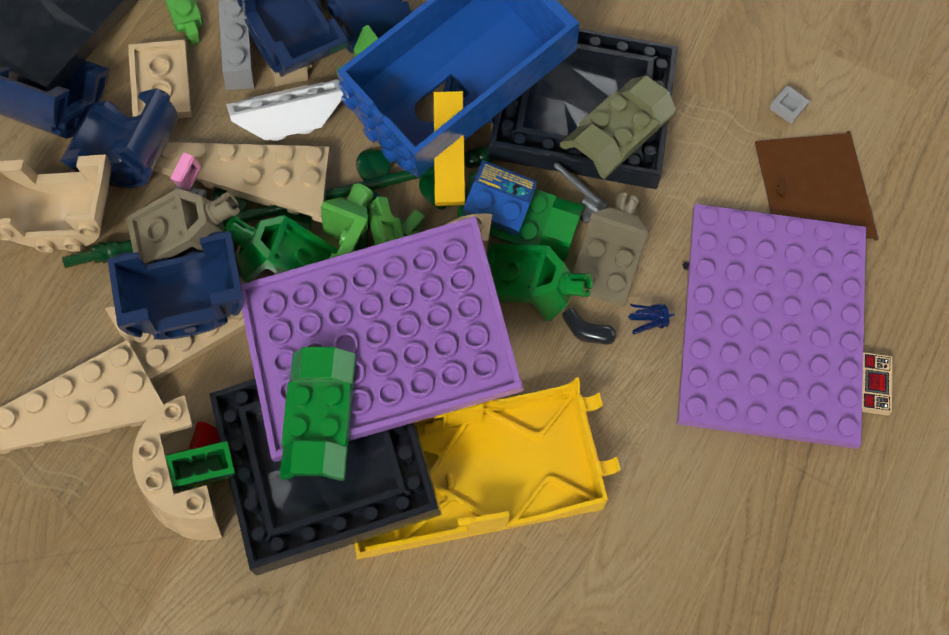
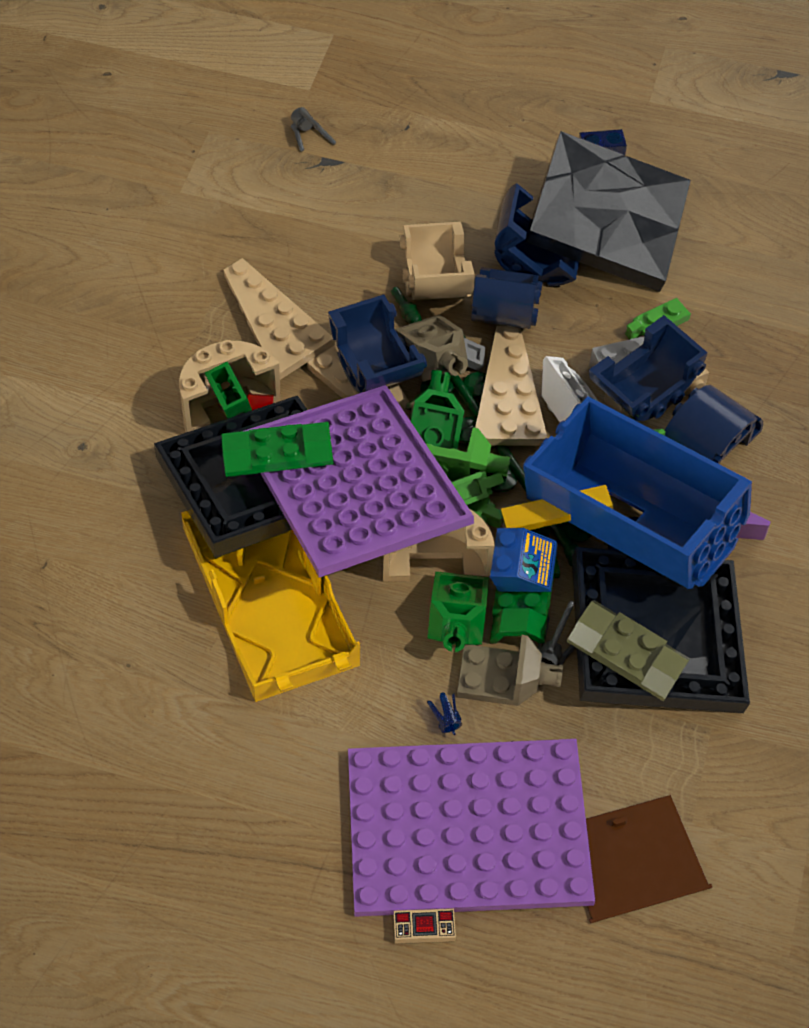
camera: 85 degrees right, 10 degrees down
(161, 67) = (579, 317): tan plate -> none
(186, 172) = (488, 341): bright pink tile -> none
(586, 331) = (420, 665): black arm -> none
(789, 104) = (720, 819): light grey plate -> none

